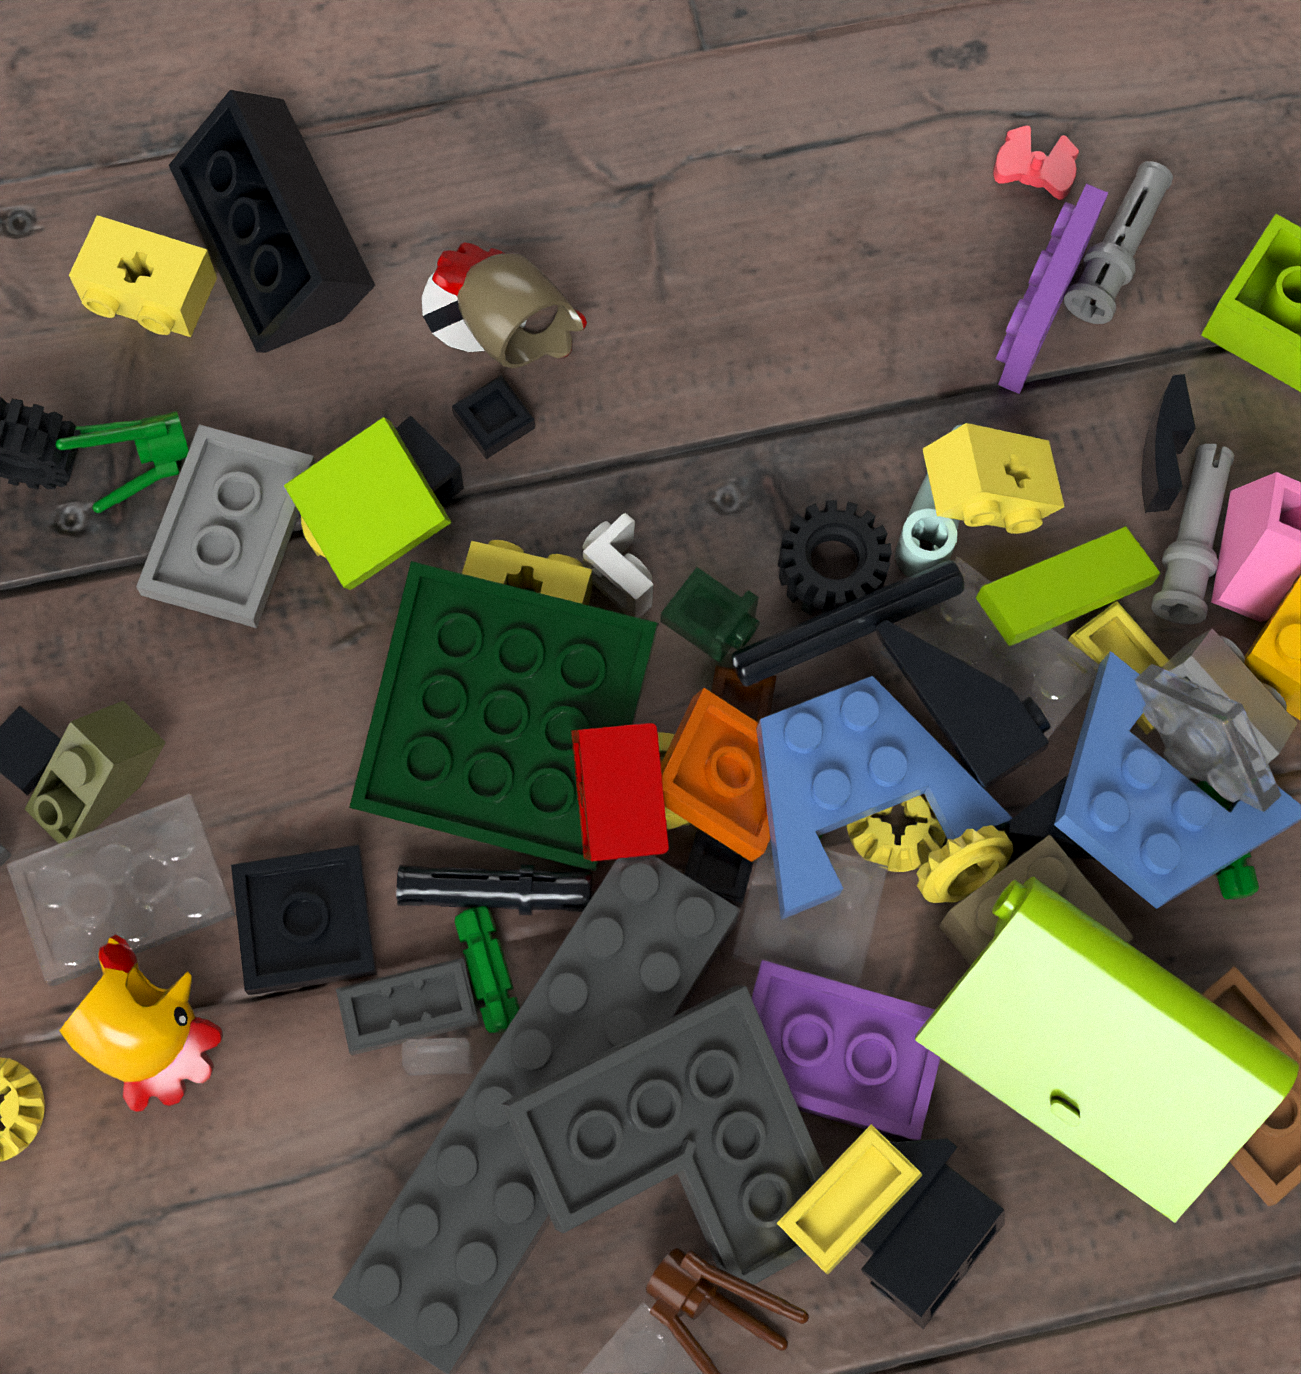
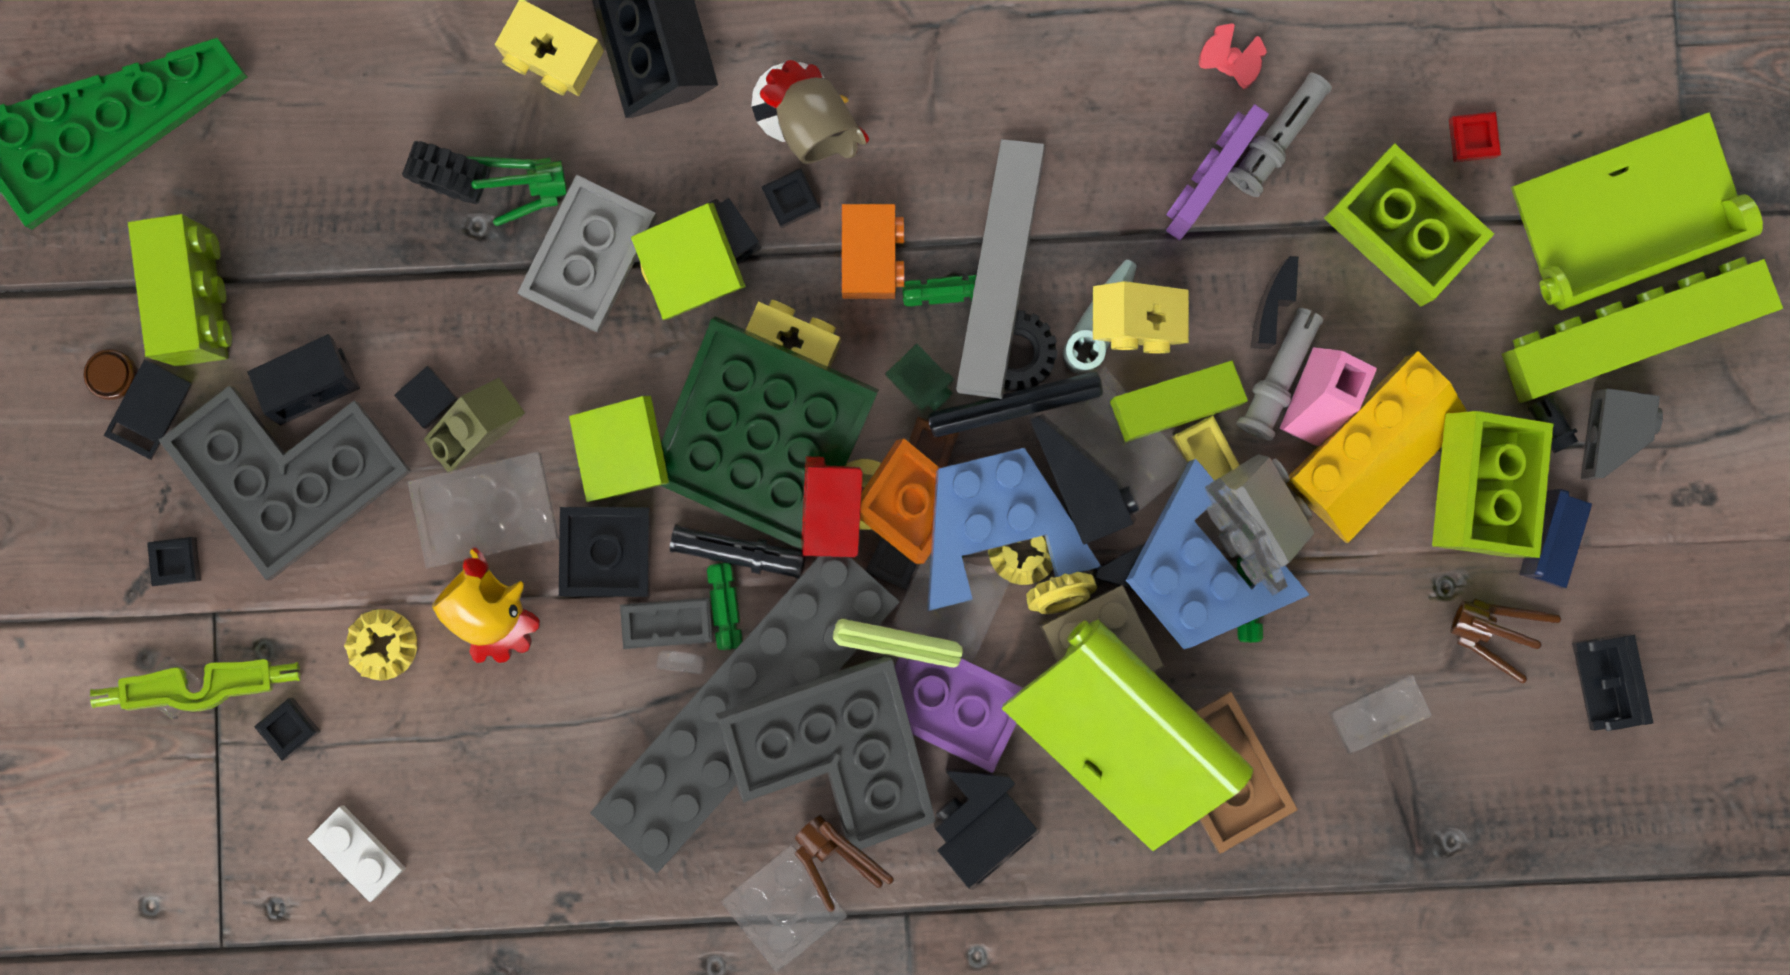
camera: 10 degrees right, 15 degrees up
(305, 772) = (618, 449): none -> lime tile
(612, 460) = (869, 251): none -> orange brick
(618, 577) = (861, 341): white bracket -> none
(722, 498) = (938, 290): none -> green axle
(748, 965) = (897, 643): none -> yellowish green axle
(793, 457) = (1001, 269): none -> light grey tile
(849, 1199) = (936, 807): light yellow tile -> none

